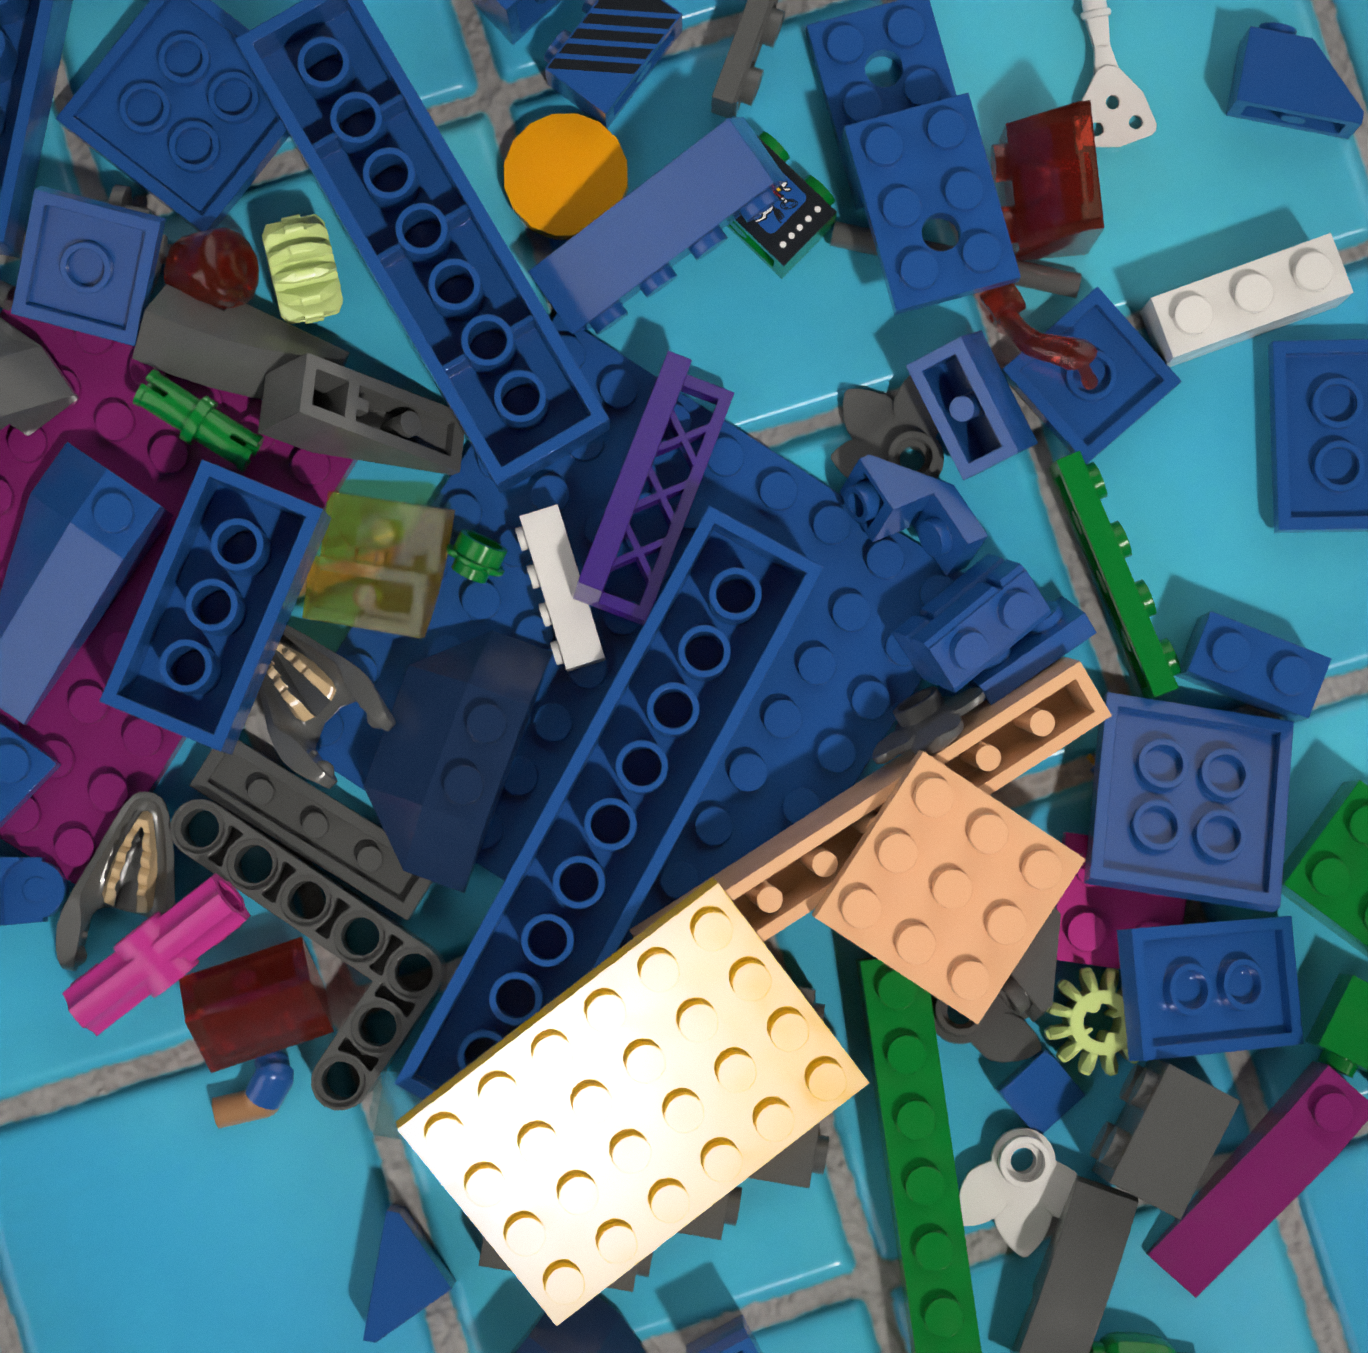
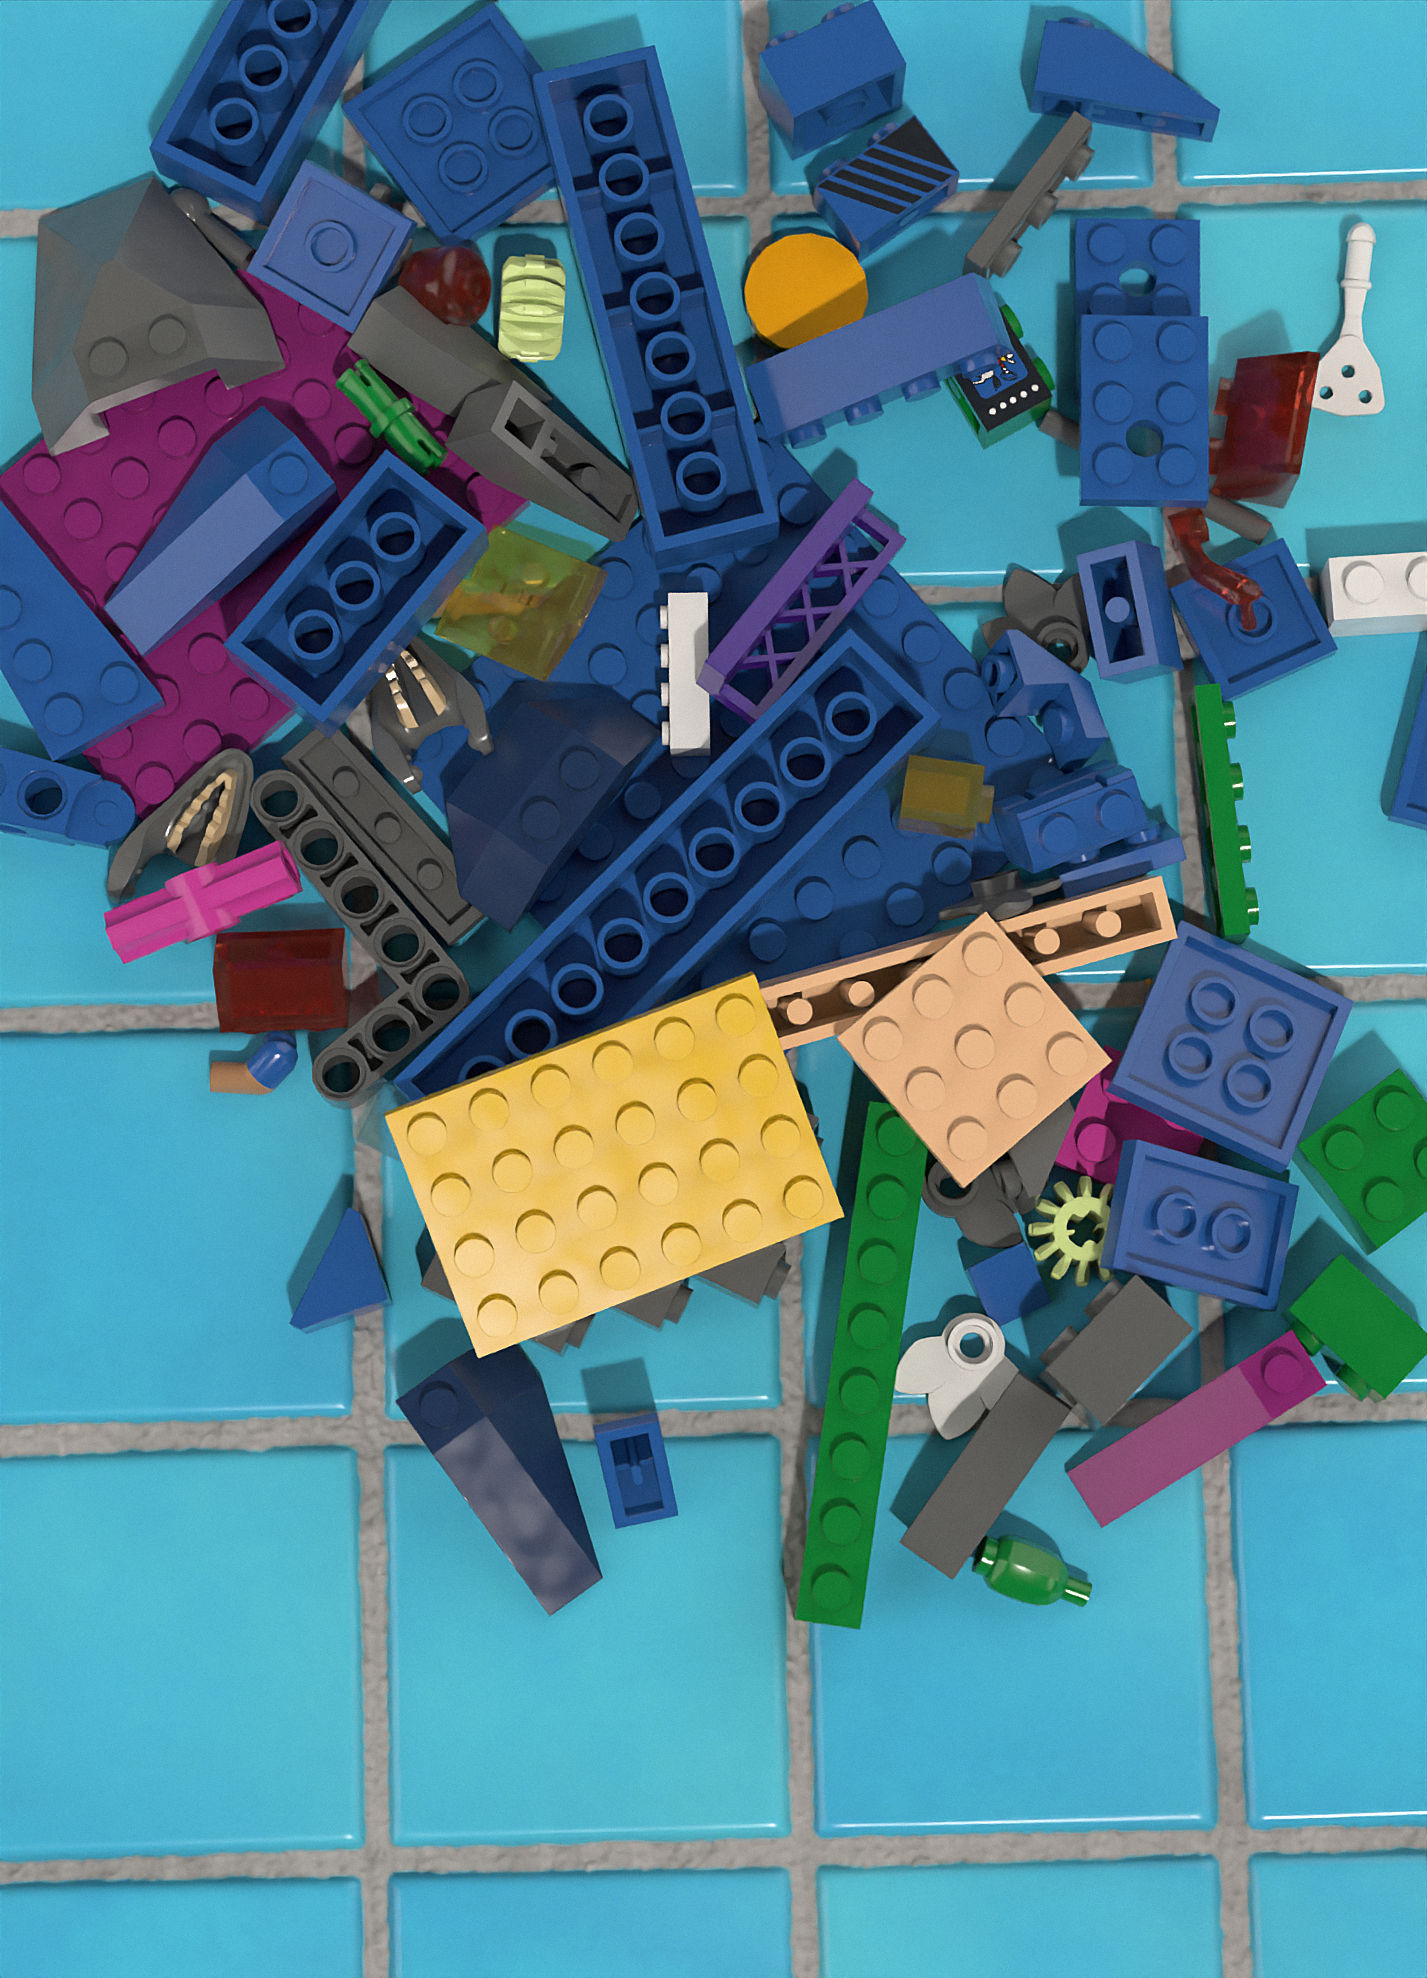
camera: 20 degrees right, 5 degrees down
(476, 556) = (616, 621): green plate -> none
(846, 639) = (944, 797): none -> clear yellow brick
(1253, 667) = (1329, 937): blue brick -> none

